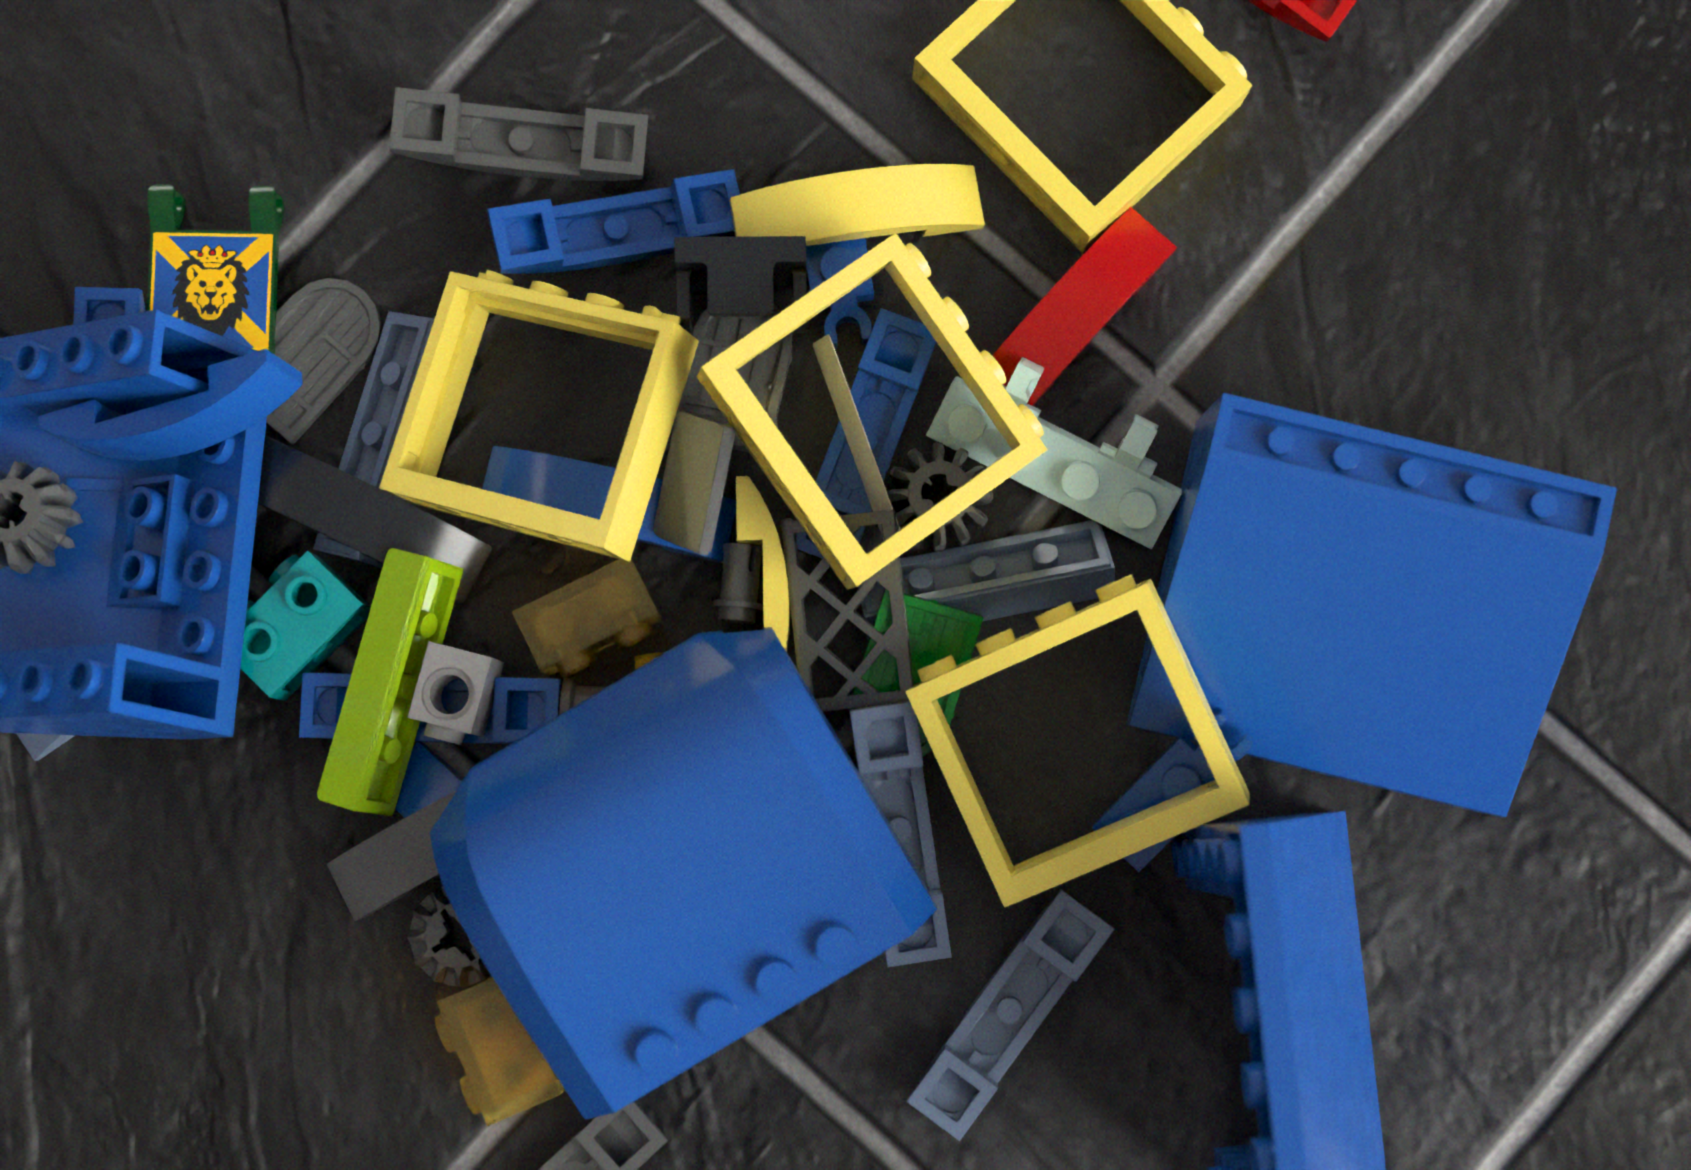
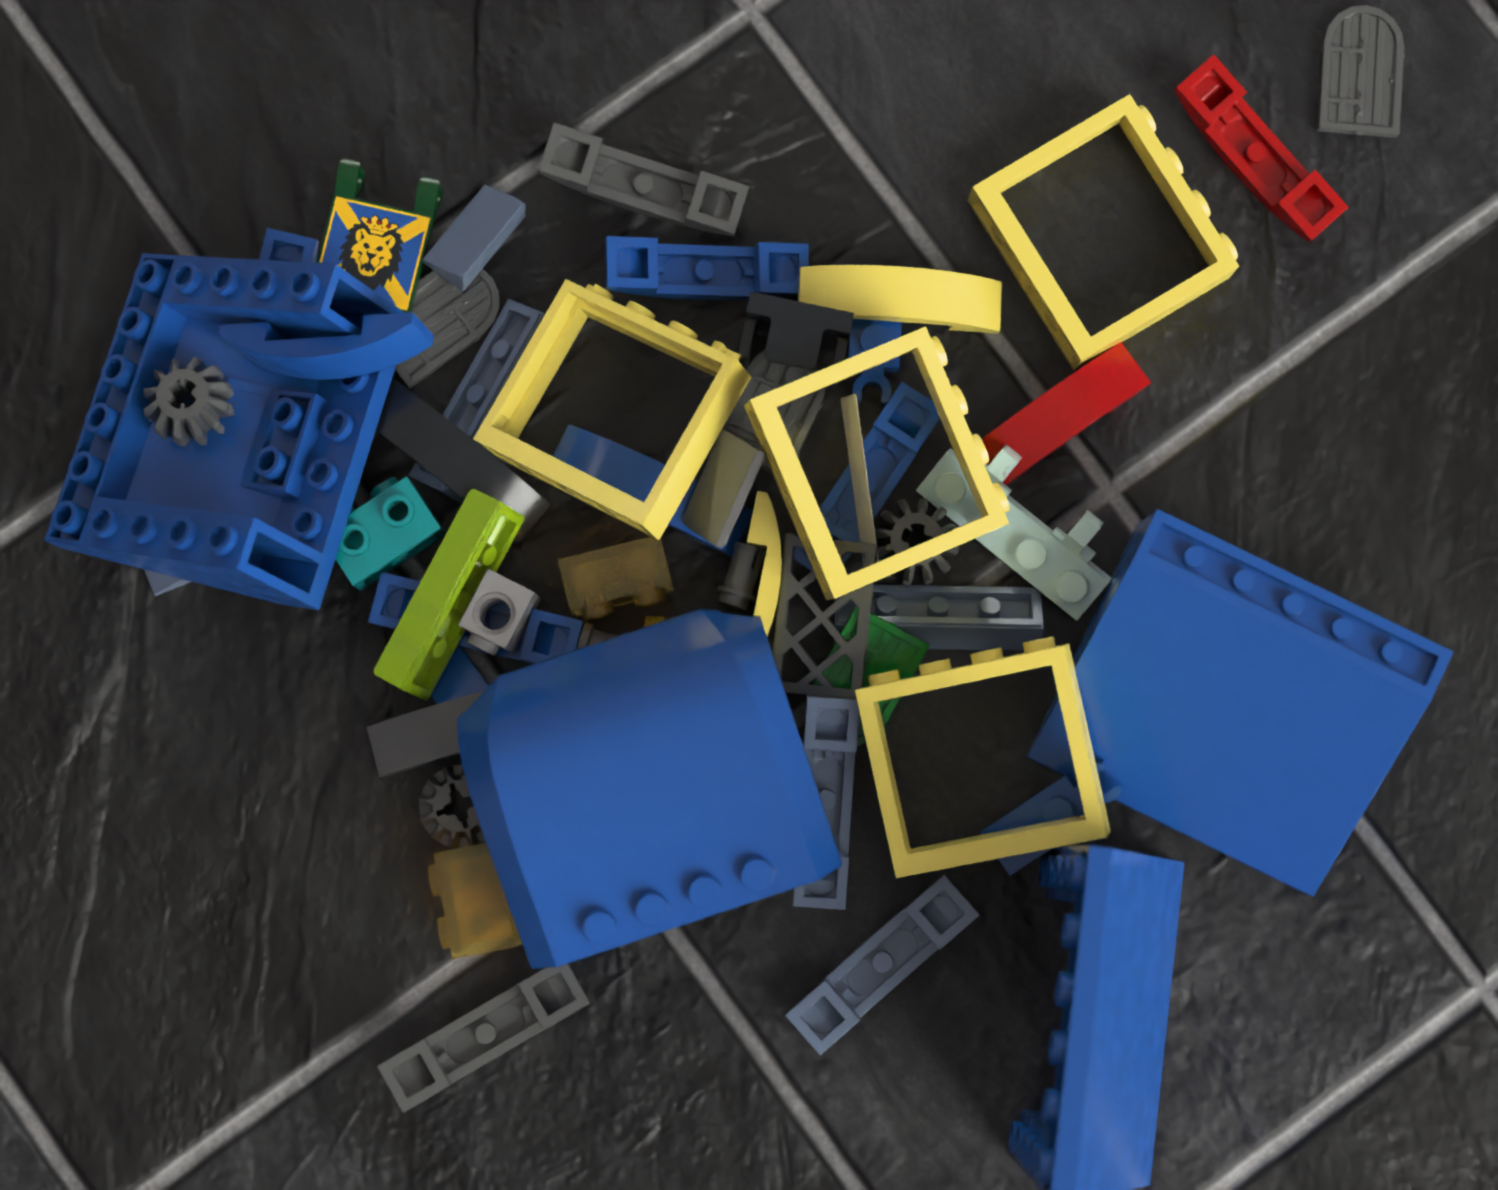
camera: 15 degrees right, 0 degrees up
(332, 245) = (475, 236): none -> sand blue slope

